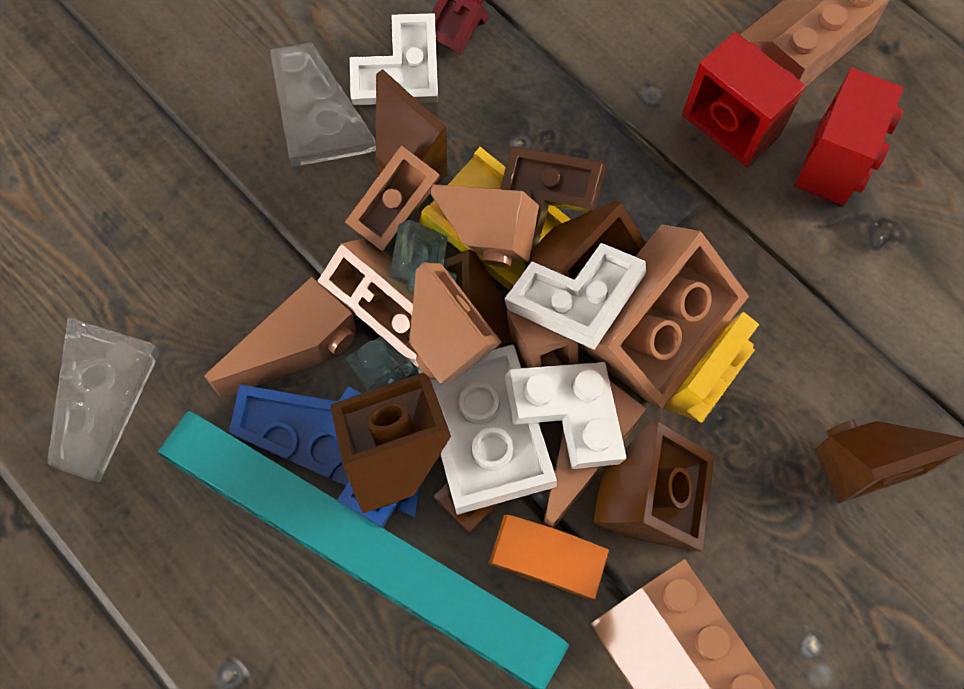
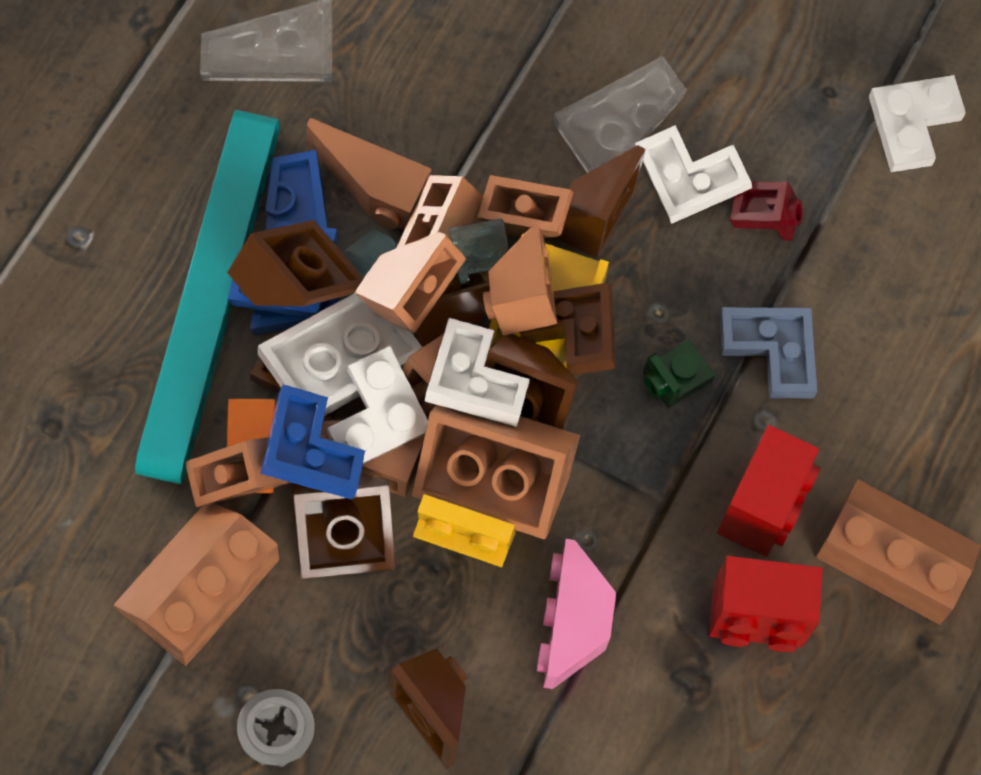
camera: 65 degrees right, 0 degrees up
(587, 49) = (782, 337): none -> sand blue plate
(590, 571) = (230, 473): none -> nougat slope
(591, 140) = (676, 374): none -> dark green bracket
(601, 499) = (300, 454): none -> blue plate
(815, 303) = (578, 615): none -> bright pink slope
(884, 624) = (265, 708): none -> light grey gear

